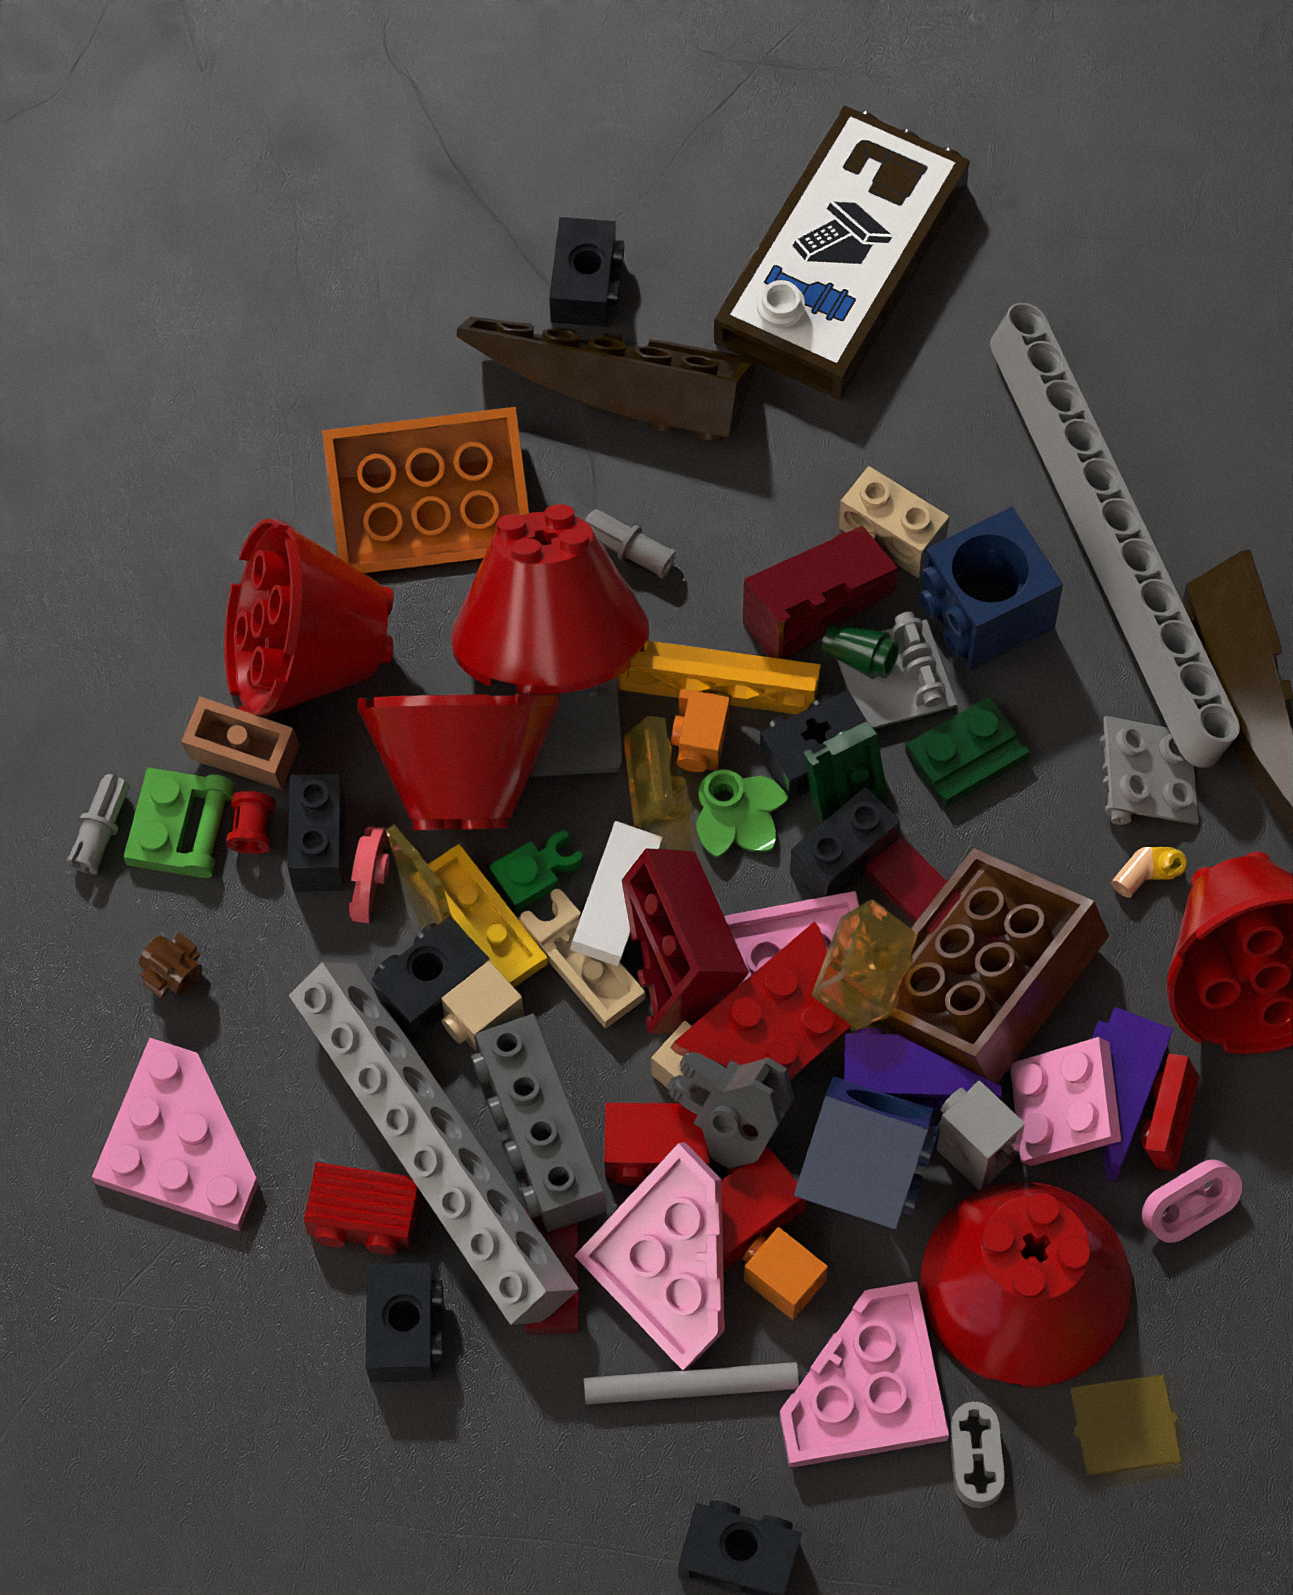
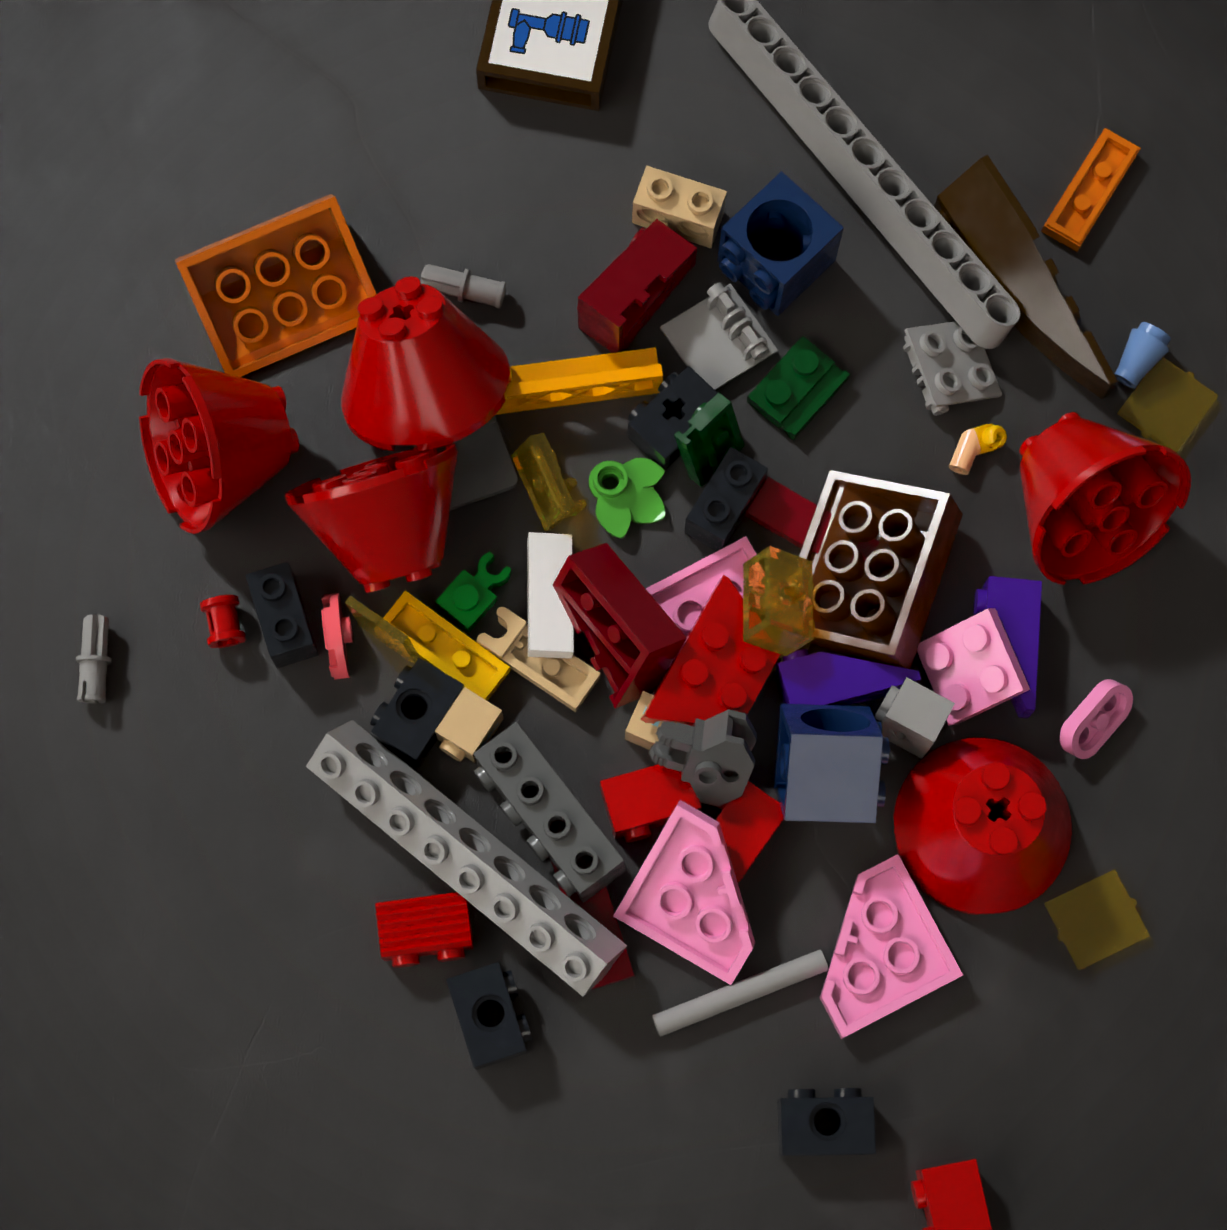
camera: 20 degrees left, 10 degrees up
(163, 820) = (147, 641): bright green plate -> none
(170, 965) = (195, 767): reddish brown gear -> none
(177, 1142) = (249, 915): bright pink plate -> none
(240, 743) = (193, 556): nougat brick -> none
(582, 247) = (348, 33): black brick -> none
(653, 383) = (442, 139): dark brown wedge -> none
(700, 730) = (576, 433): orange brick -> none
(780, 304) = (529, 43): white plate -> none
(783, 1272) = (787, 877): orange brick -> none
(862, 649) = (687, 326): dark green cone -> none
(989, 1452) = (997, 976): light grey beam -> none
(1174, 1098) = (1055, 632): red plate -> none

